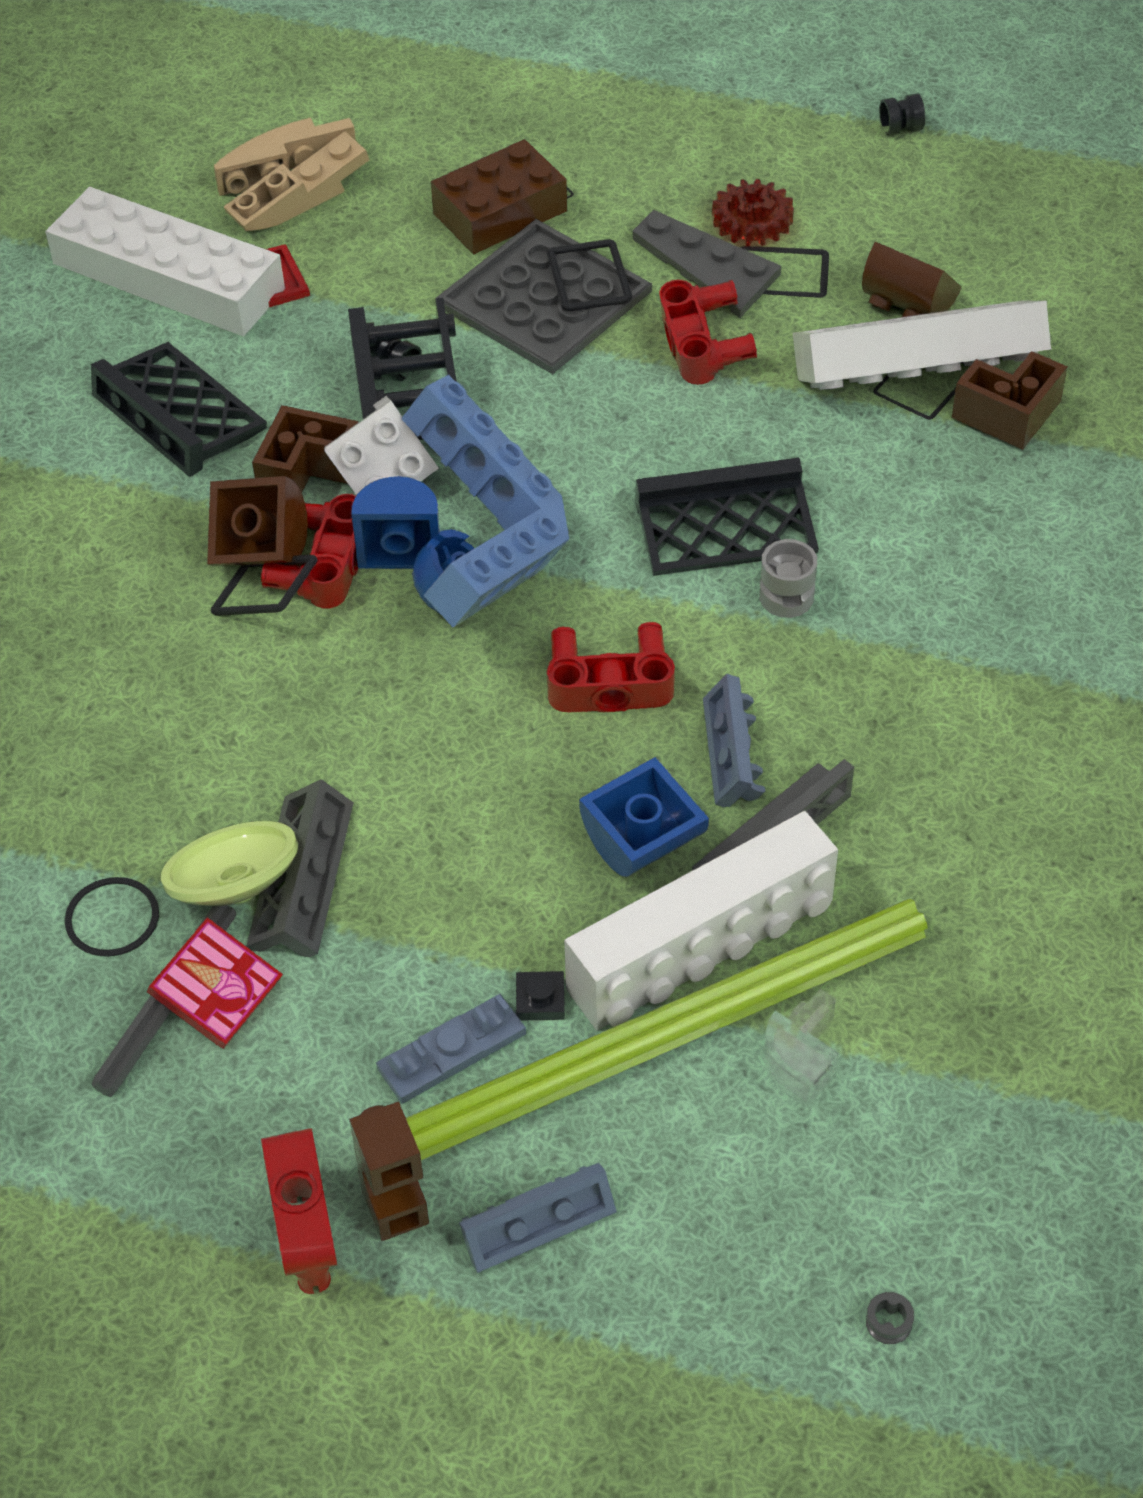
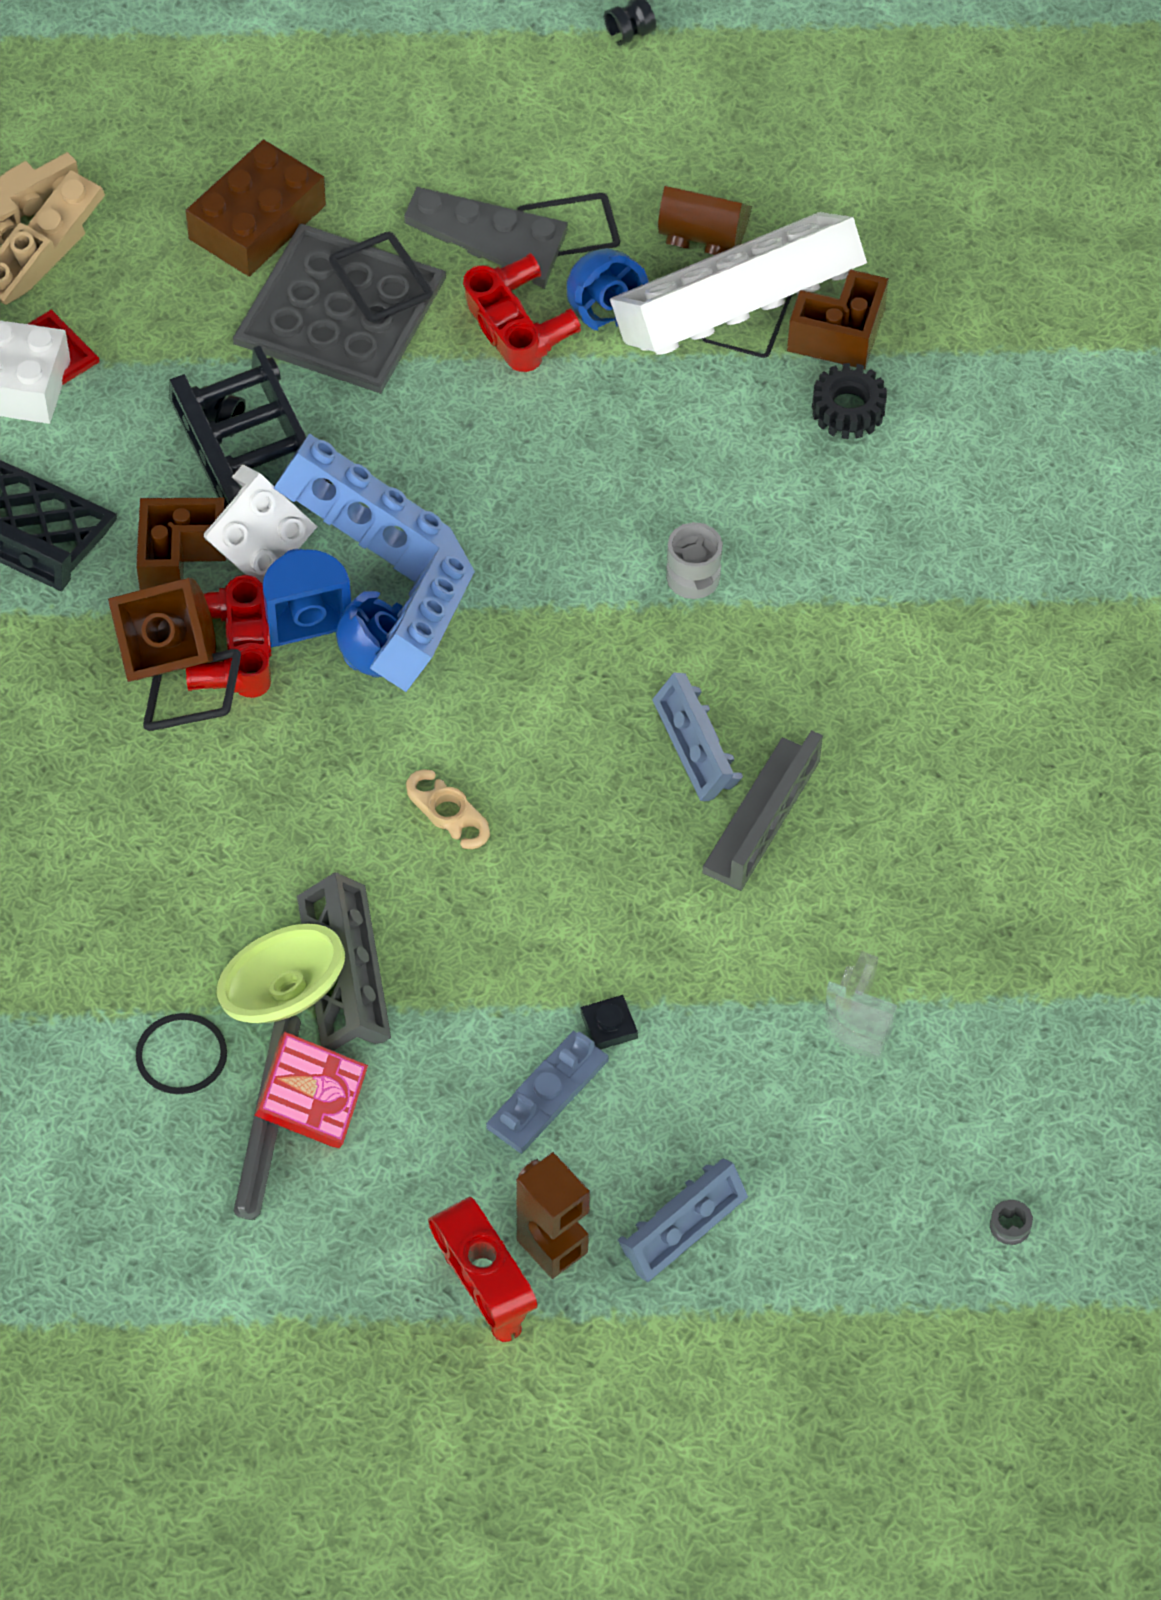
camera: 20 degrees left, 5 degrees up
(476, 763) = (466, 817): none -> tan piece
(610, 679) = (562, 704): red piece -> none
(640, 818) = (645, 834): blue brick -> none
(665, 1028) = (743, 1014): lime axle -> none
(700, 921) = (735, 917): white brick -> none
(713, 489) = (587, 485): black fence -> none
(752, 212) = (519, 168): clear red gear -> none
(787, 312) = (597, 279): none -> blue cylinder
(992, 488) = (849, 419): none -> black tyre

